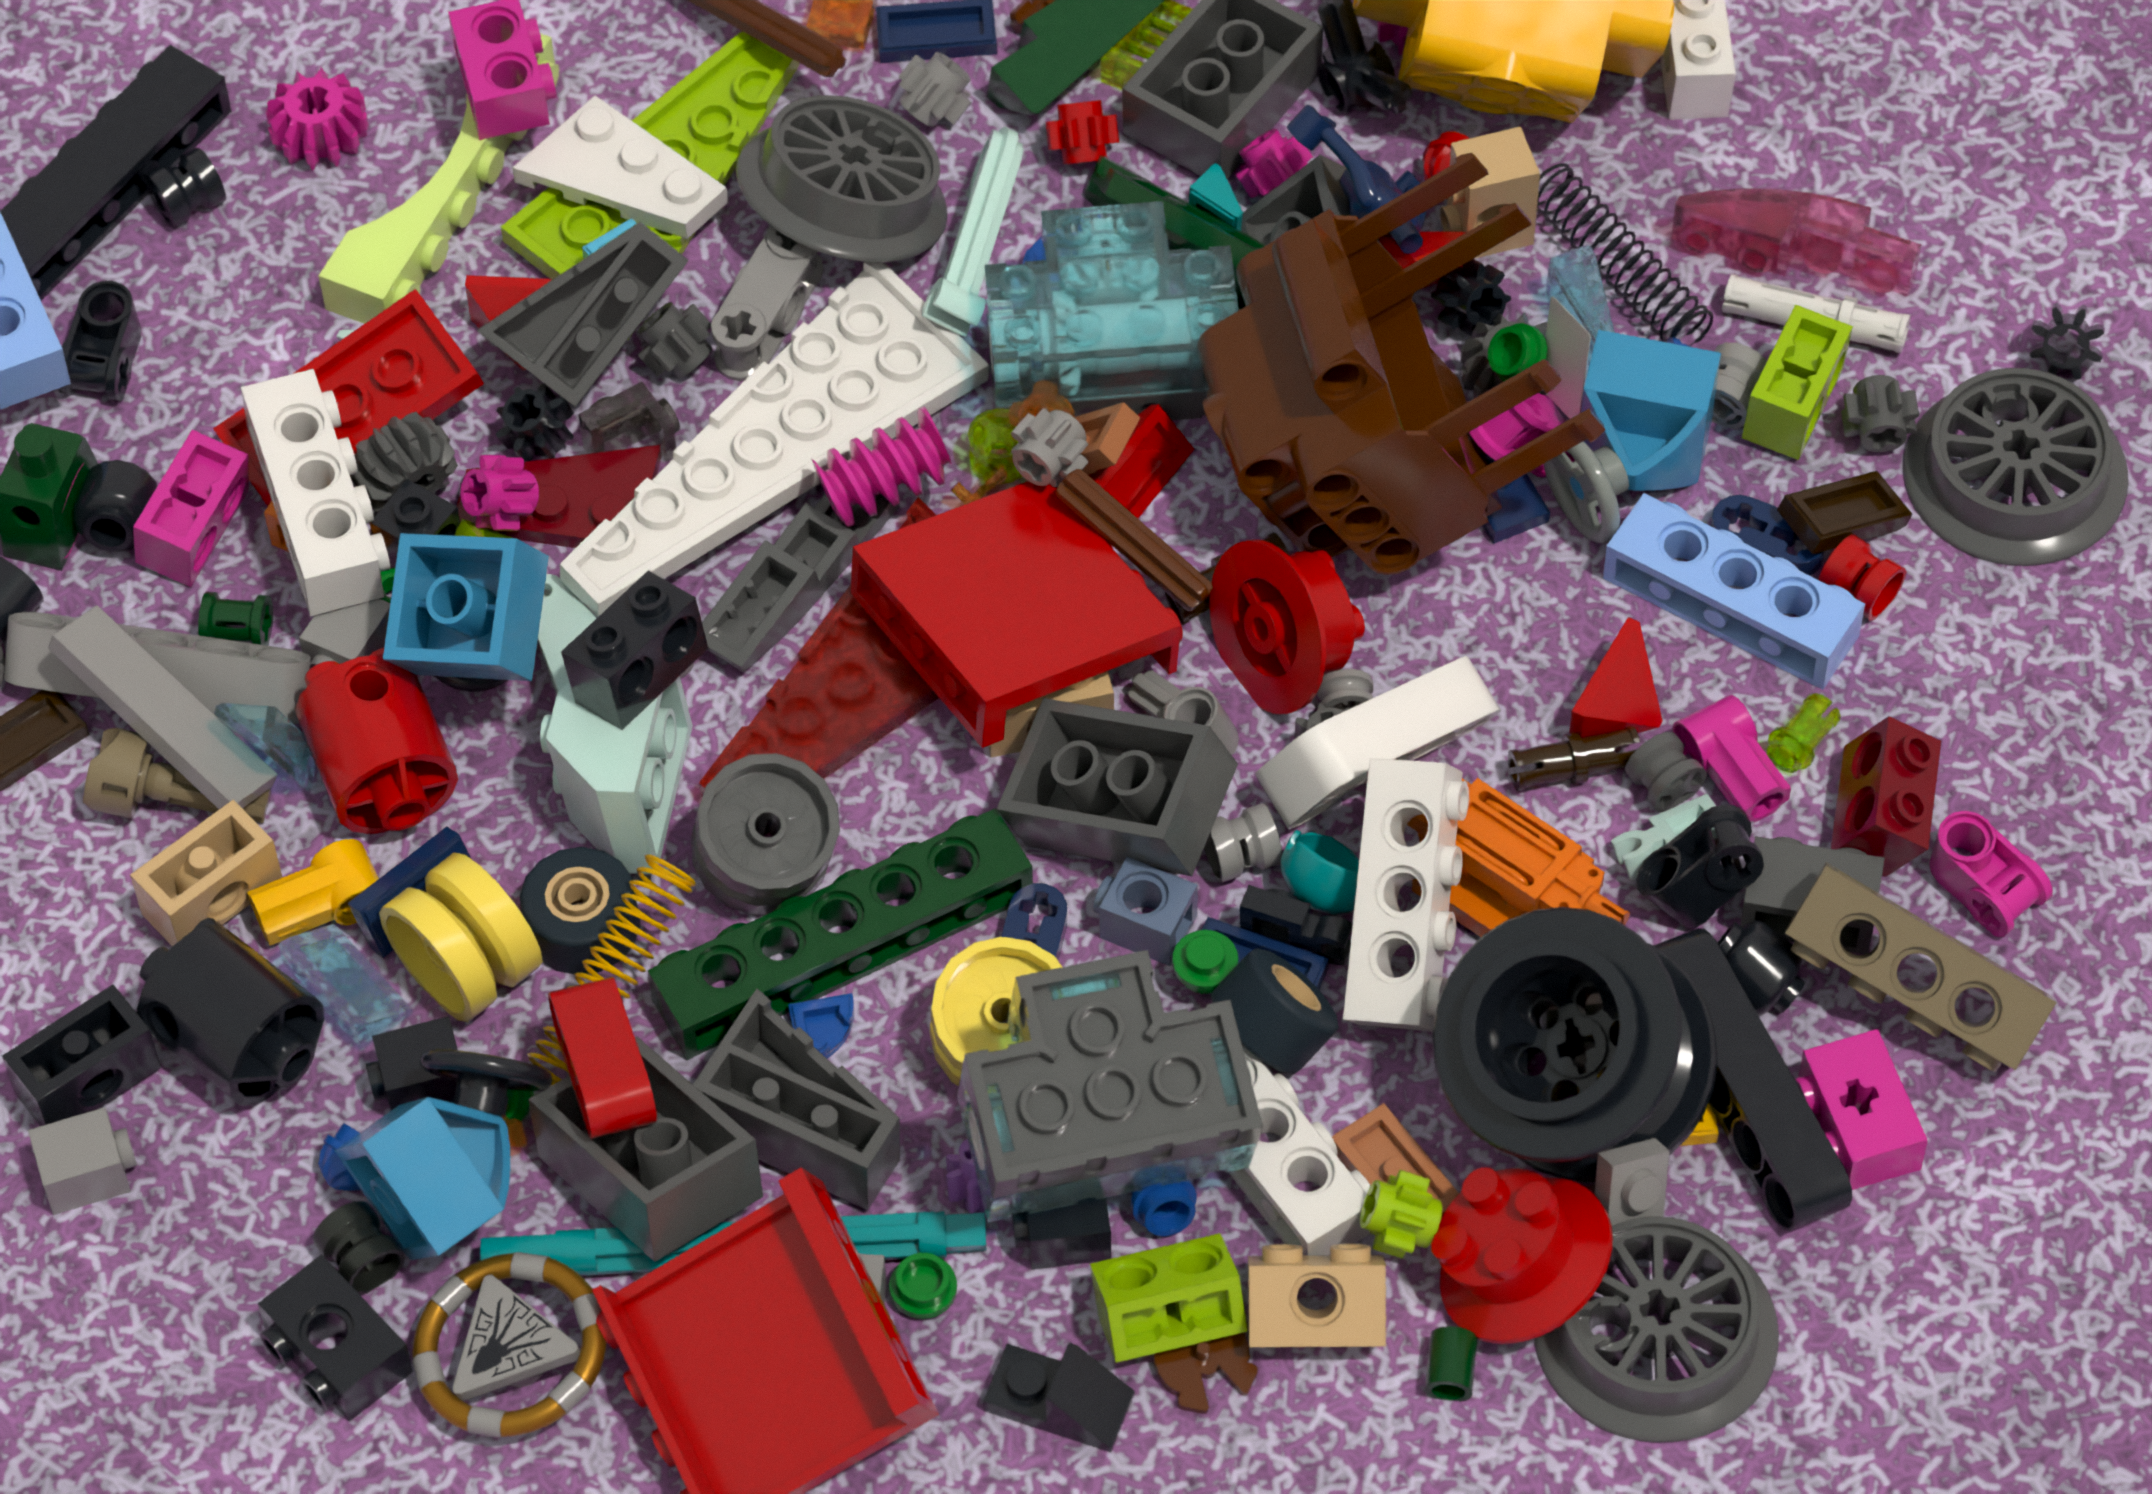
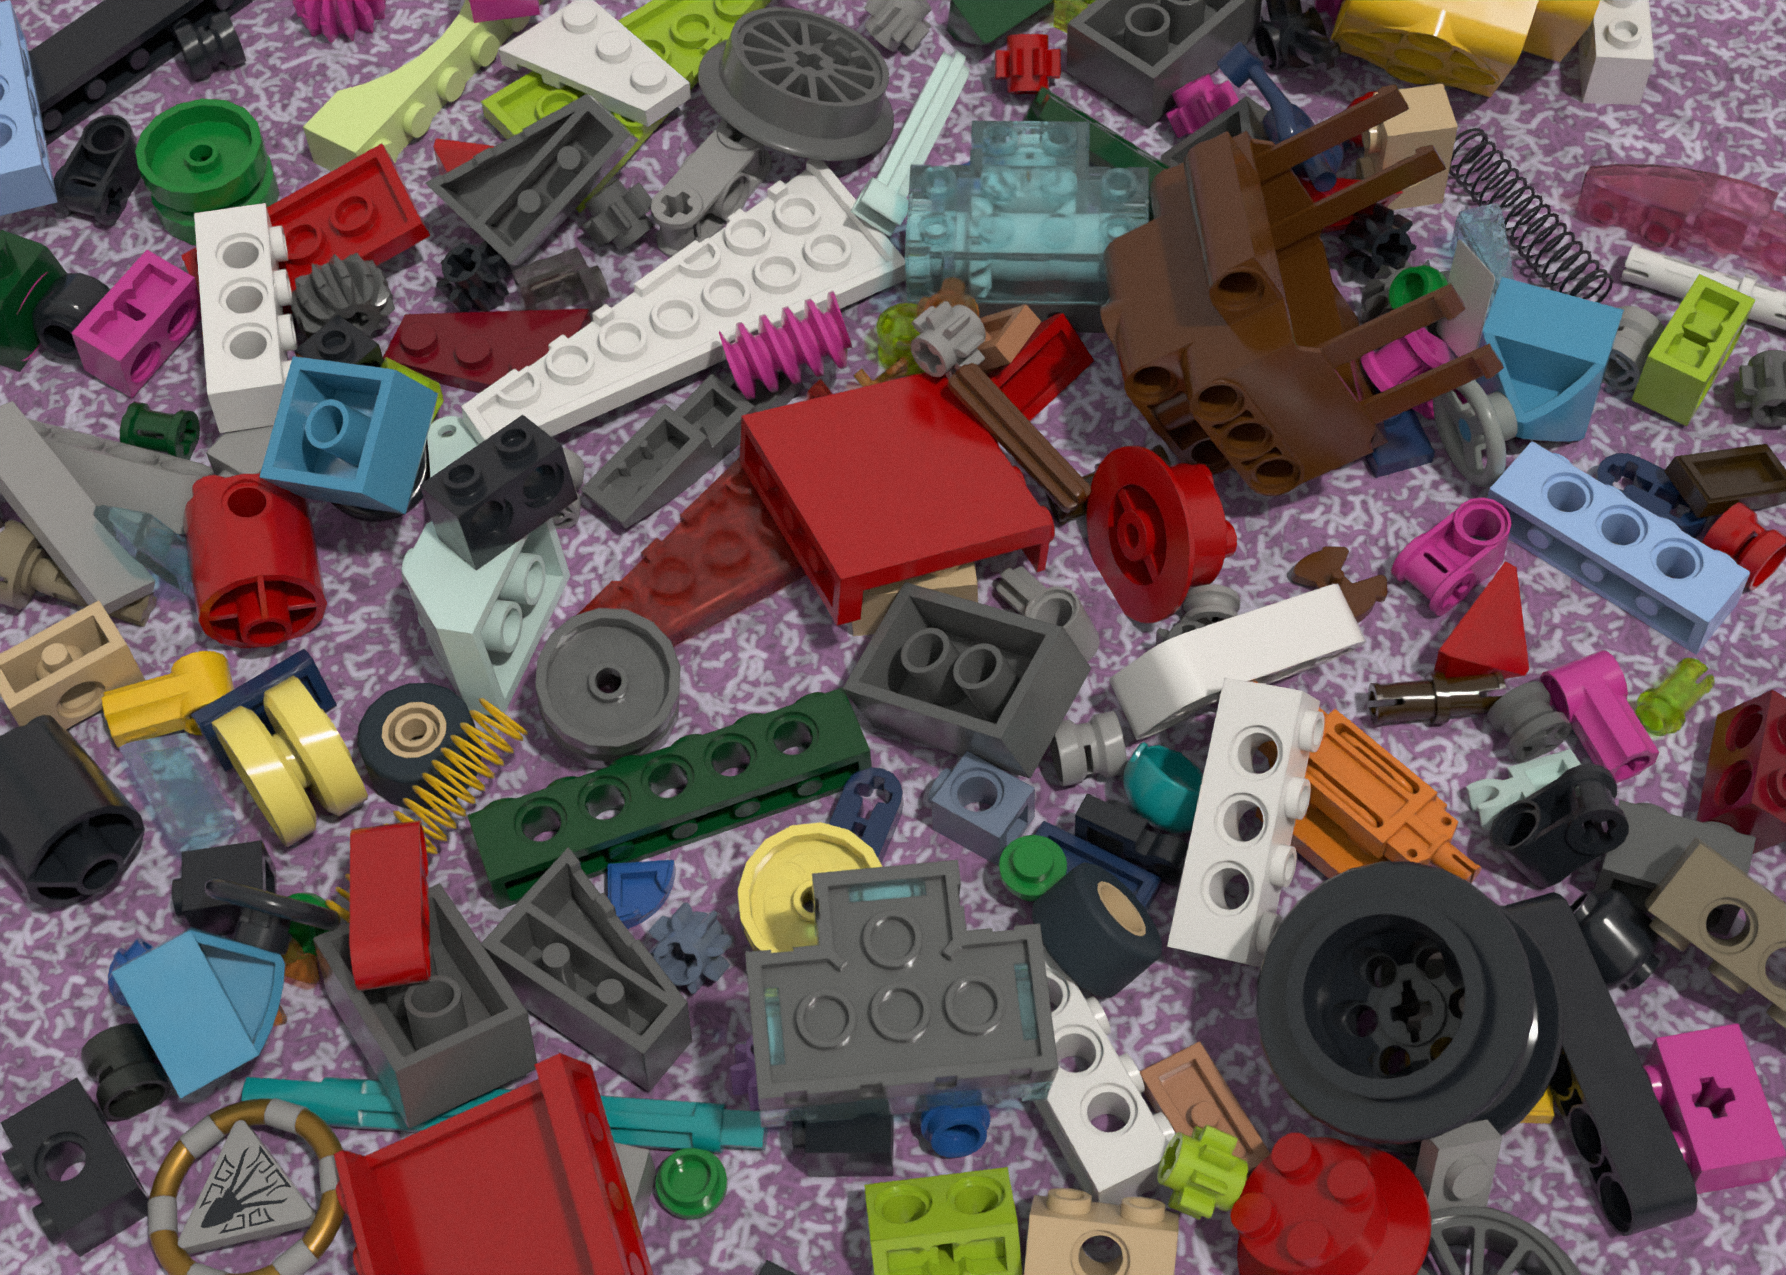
camera: 10 degrees right, 0 degrees up
(220, 330) = (204, 160): none -> green wheel
(499, 492) = (420, 335): dark pink gear -> none
(895, 1059) = (690, 947): none -> sand blue gear
(1214, 195) = (1143, 129): teal slope -> none
(1452, 642) = (1324, 569): none -> reddish brown piece
(1574, 623) = (1450, 562): none -> dark pink piece

